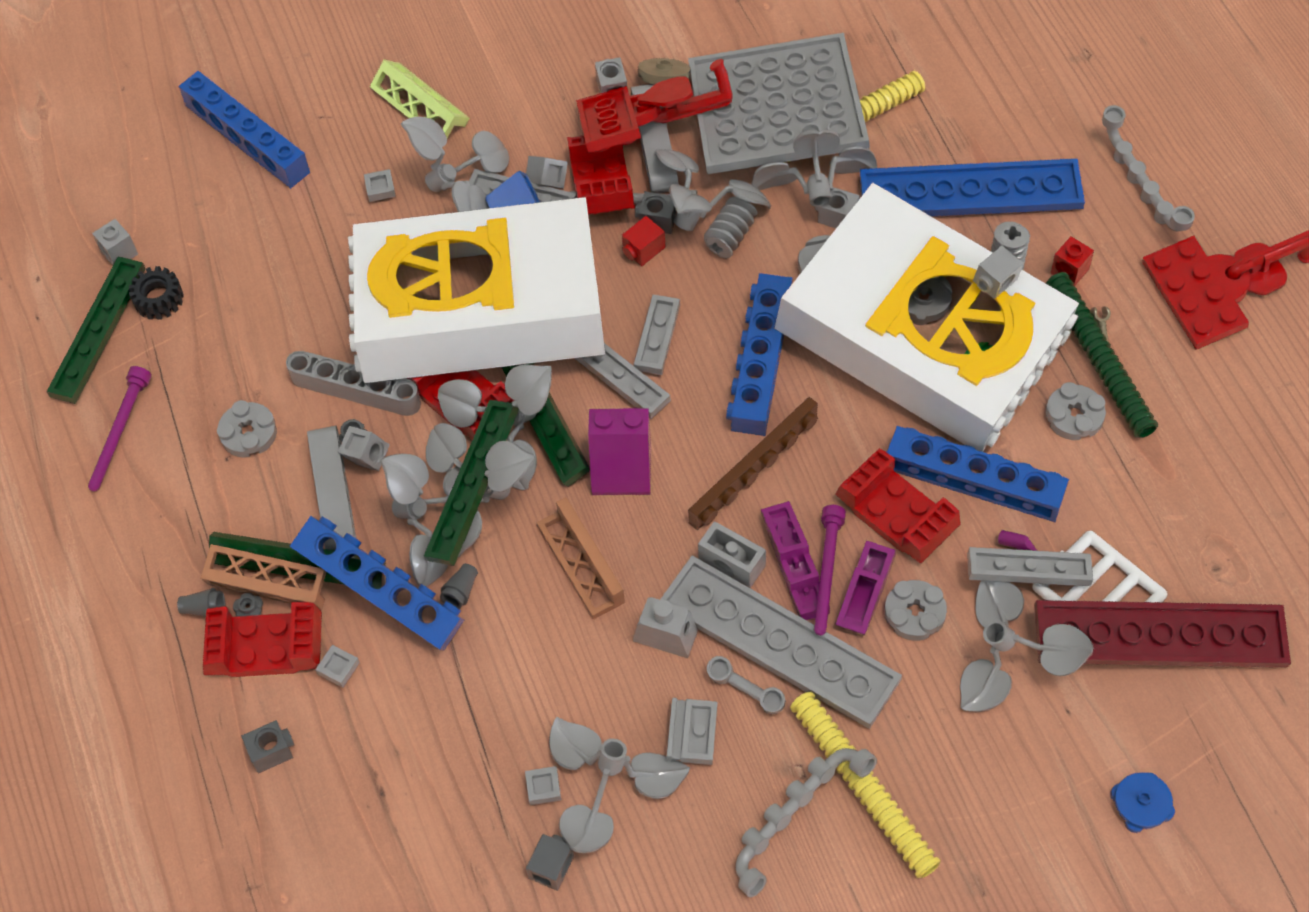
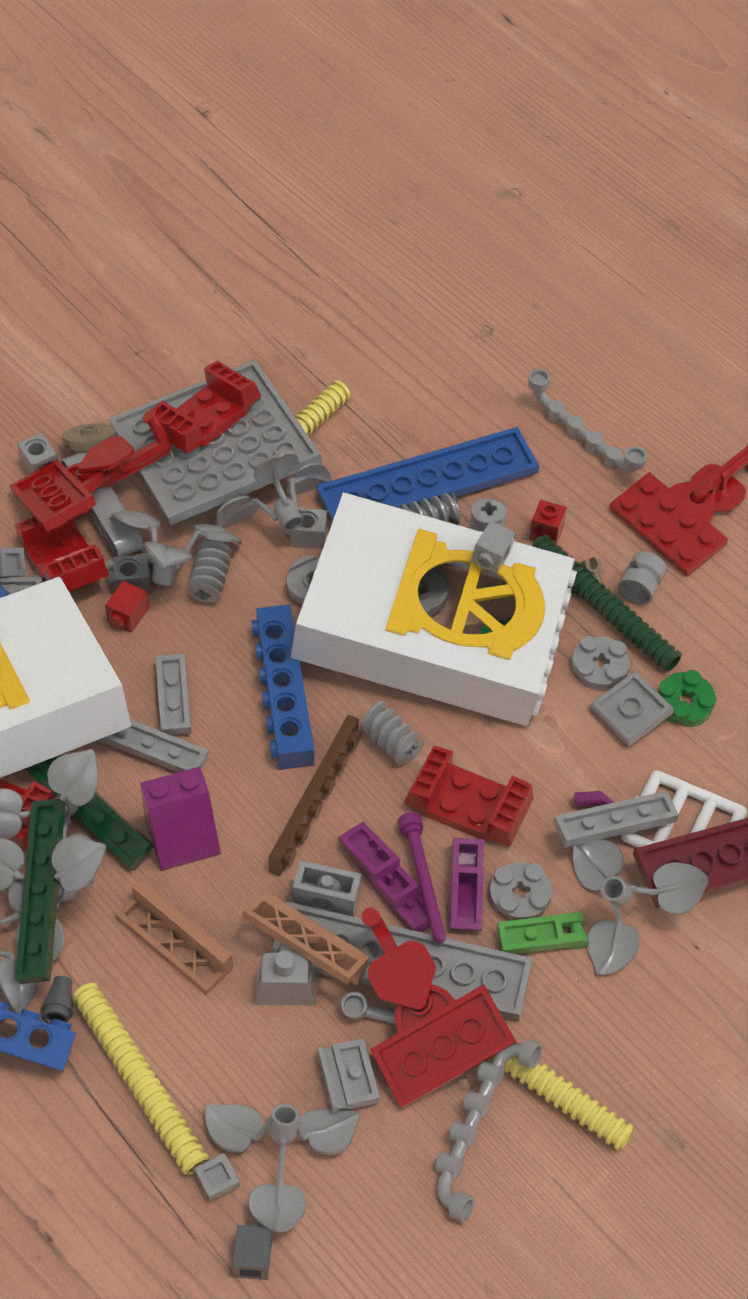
camera: 25 degrees left, 5 degrees down
(506, 676) = (139, 1078): none -> light yellow piece
(694, 595) = (307, 938): none -> nougat fence
(780, 72) = (209, 410): none -> red plate
(785, 724) = (443, 1037): none -> red plate
(845, 426) = (390, 733): none -> light grey piece
(921, 655) = (542, 933): none -> bright green plate
(965, 223) = (441, 509): none -> light grey piece
(982, 485) = (545, 752): blue brick -> none
(1089, 464) = (631, 708): none -> light grey plate
(1146, 339) = (642, 578): none -> light grey wheel
(1154, 455) = (692, 685): none -> green plate

